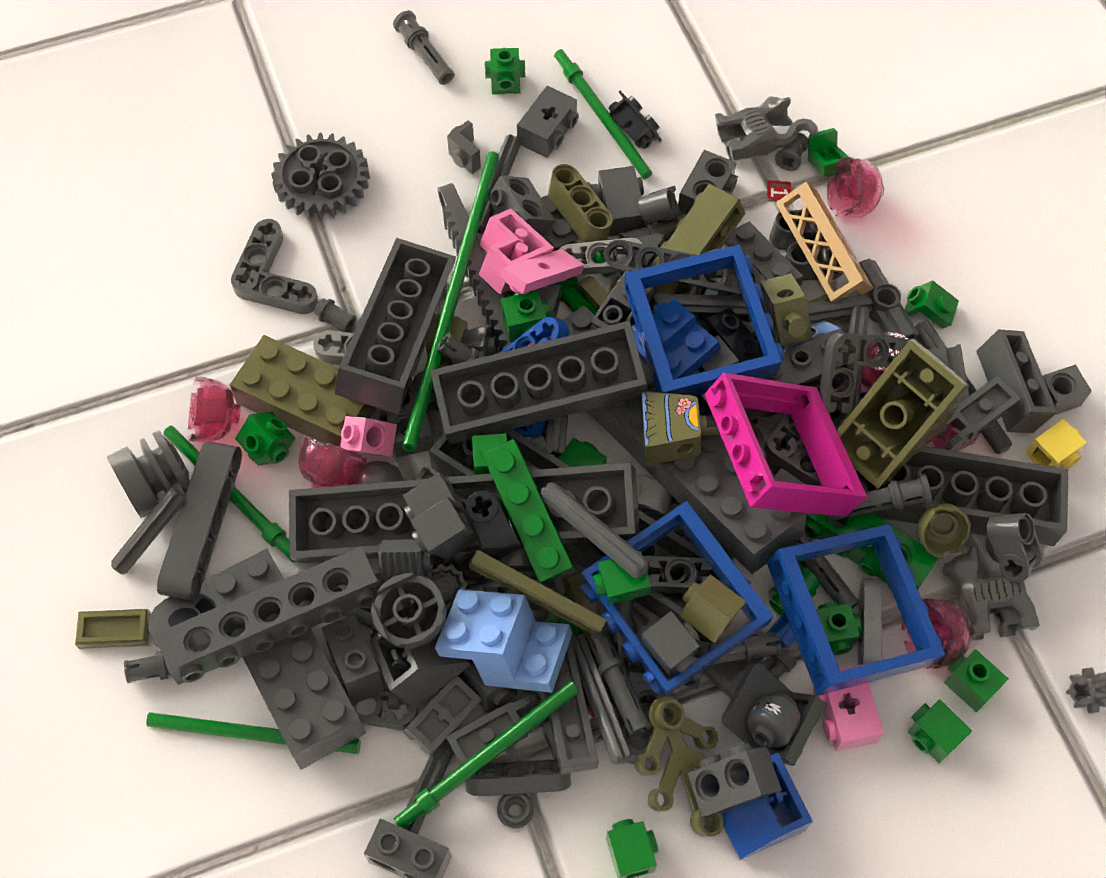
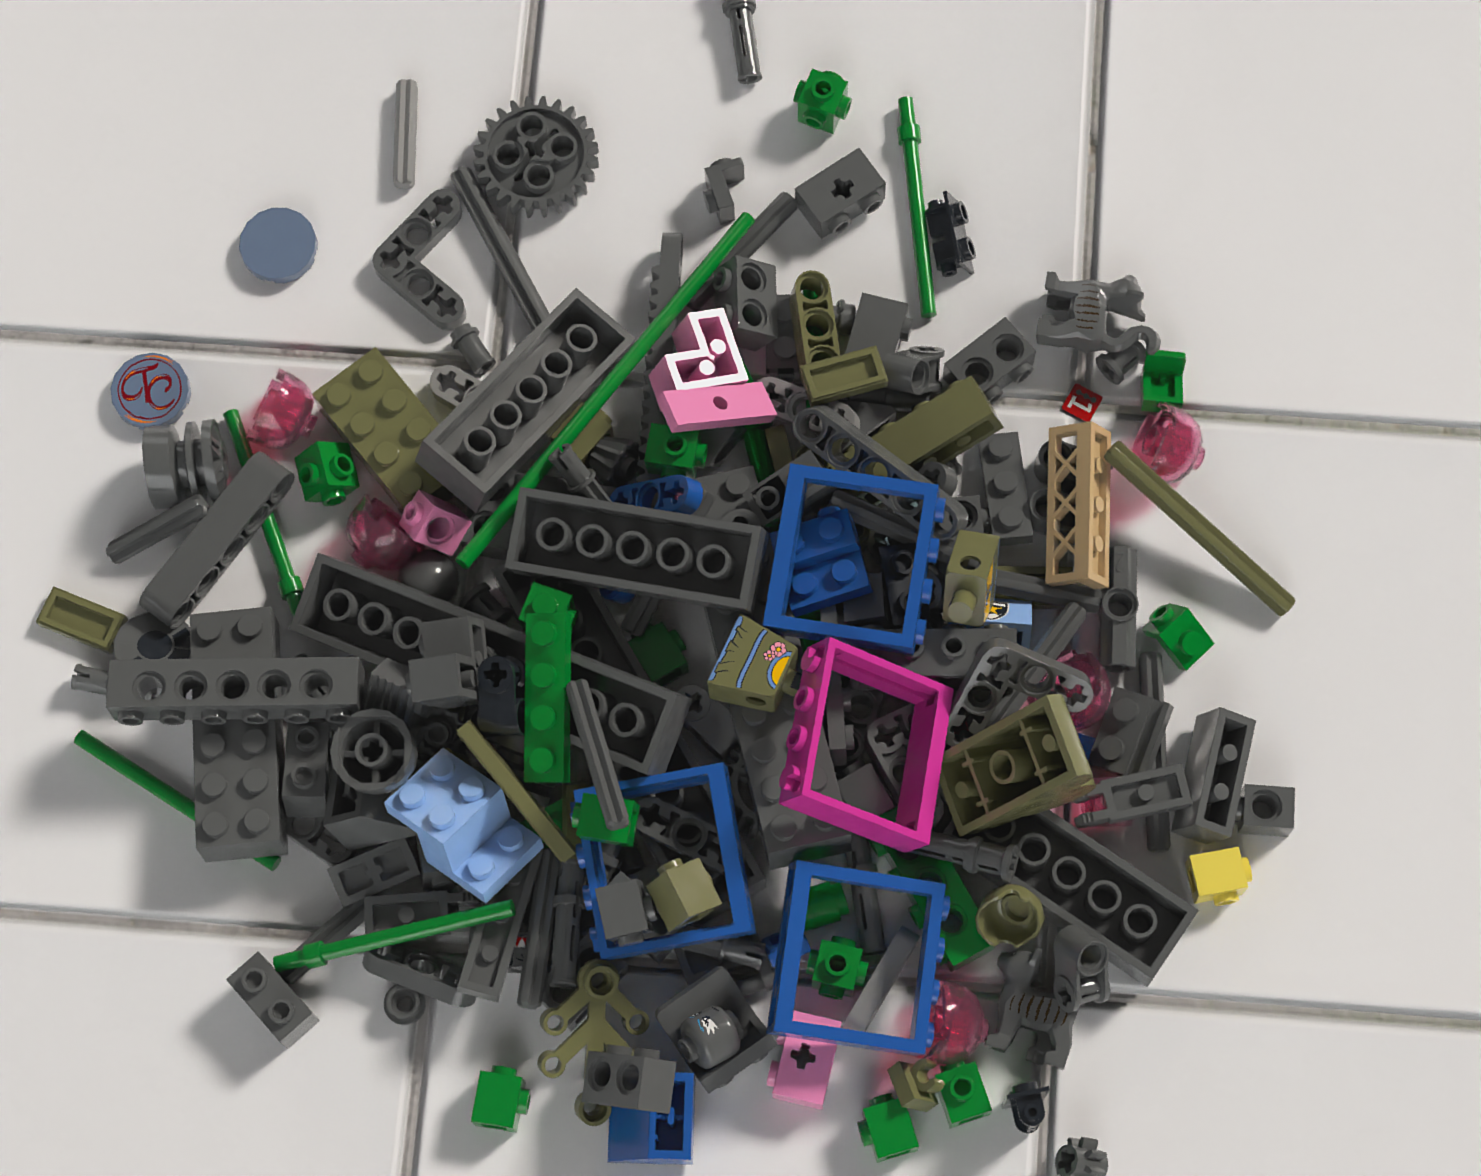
camera: 30 degrees right, 10 degrees up
(95, 437) = (150, 390): none -> sand blue tile
(154, 303) = (278, 245): none -> sand blue tile
(216, 197) = (405, 134): none -> light grey axle
(322, 242) = (499, 246): none -> dark grey axle
(619, 219) = (843, 376): none -> olive tile
(909, 228) = (1199, 528): none -> olive axle
(941, 687) = (913, 1085): none -> olive tile
(1033, 664) = (1026, 1105): none -> black hinge

